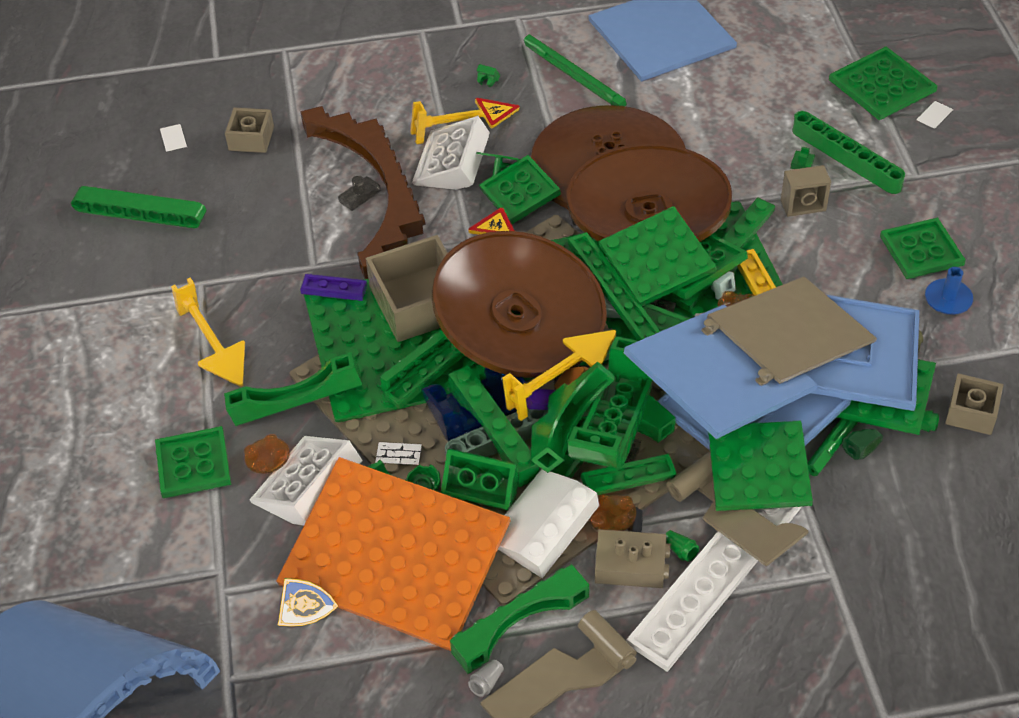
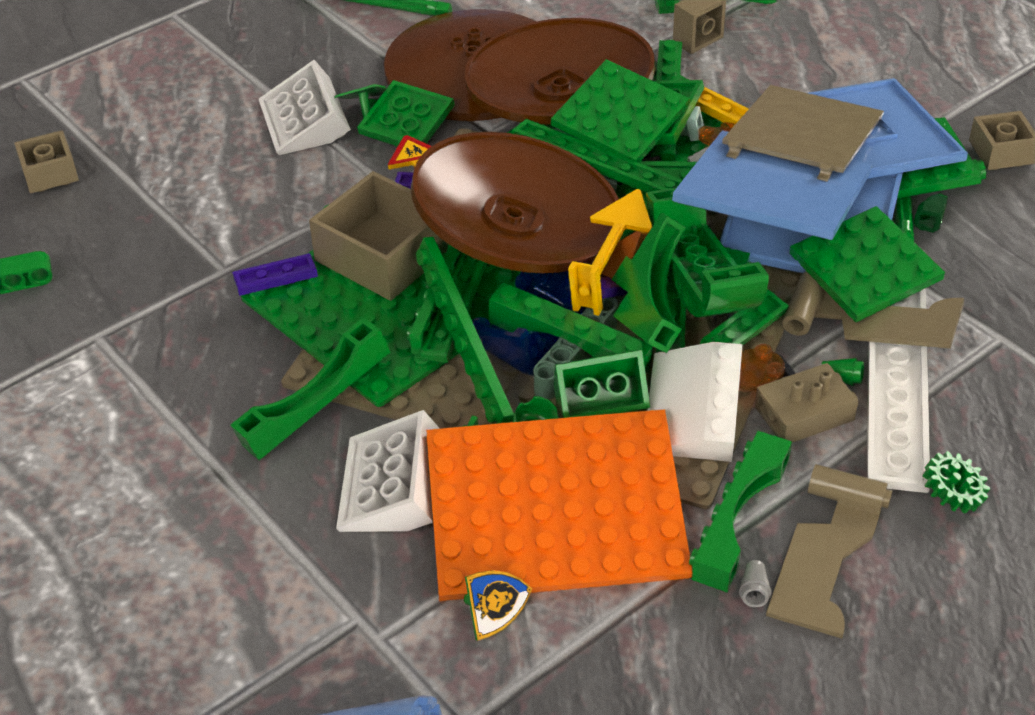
camera: 30 degrees left, 5 degrees down
(192, 462) = (237, 517): green plate -> none
(226, 362) = (194, 401): yellow piece -> none
(266, 454) = (322, 473): clear orange dish -> none
(360, 192) = (223, 181): clear smoke tile -> none
(369, 141) = (198, 128): reddish brown arch -> none
(398, 453) = (462, 411): white sticker -> none
(413, 400) = (464, 333): none -> green plate
(489, 73) = (283, 26): green tile -> none
(492, 111) = (248, 86): yellow piece -> none
(690, 688) = (956, 482): none -> green gear
(922, 248) = (841, 35): green plate -> none
(949, 294) = (899, 62): blue piece -> none

